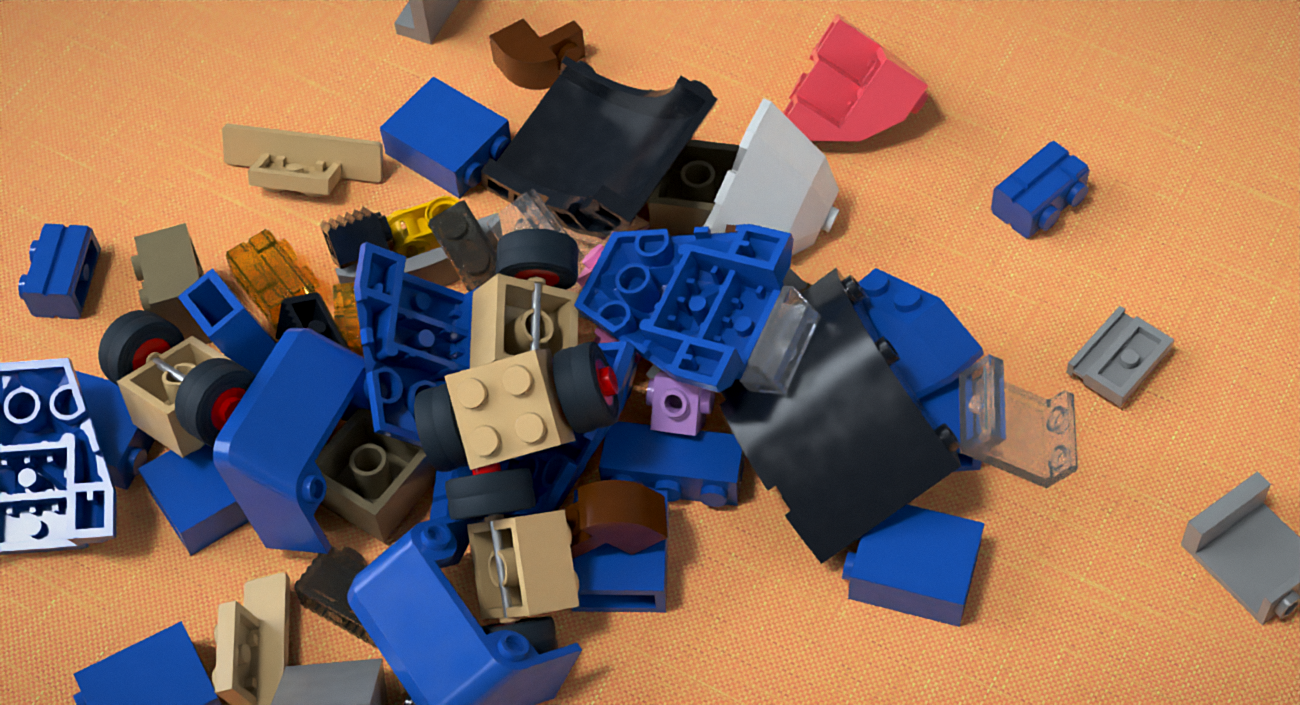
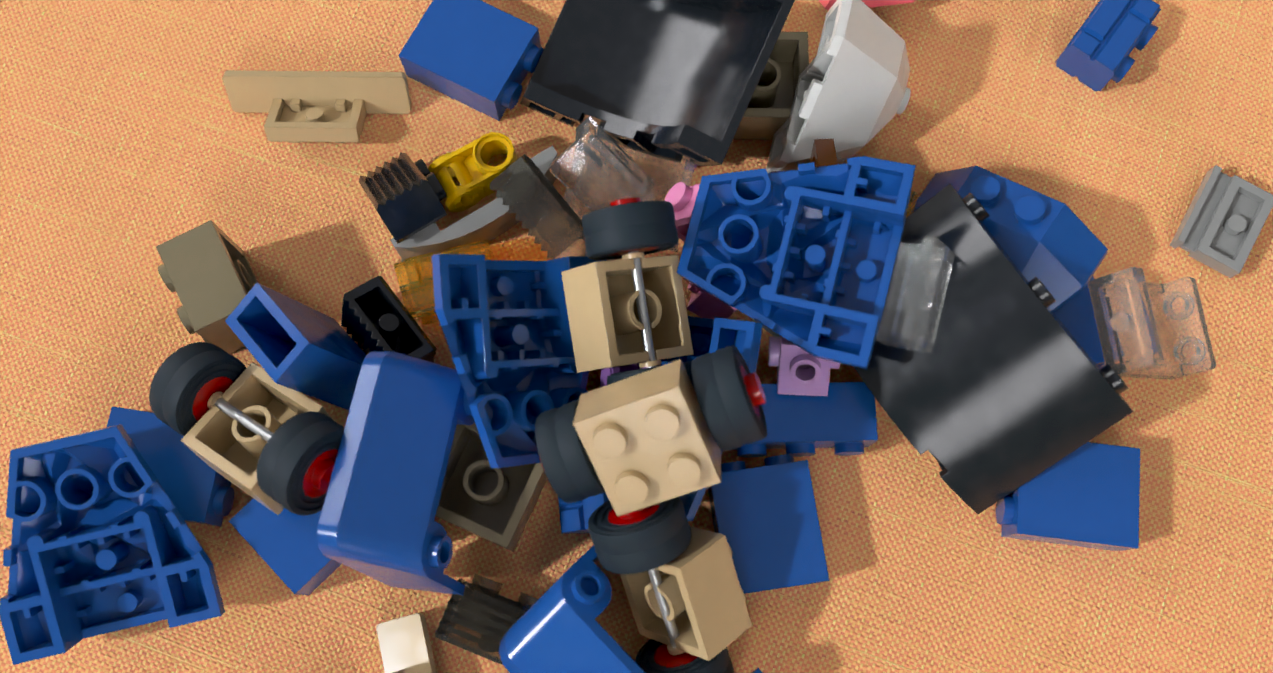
camera: 15 degrees left, 20 degrees up
(60, 271) = (81, 277): blue brick -> none
(269, 273) = (320, 253): clear yellow brick -> none
(616, 514) = (769, 518): reddish brown brick -> none

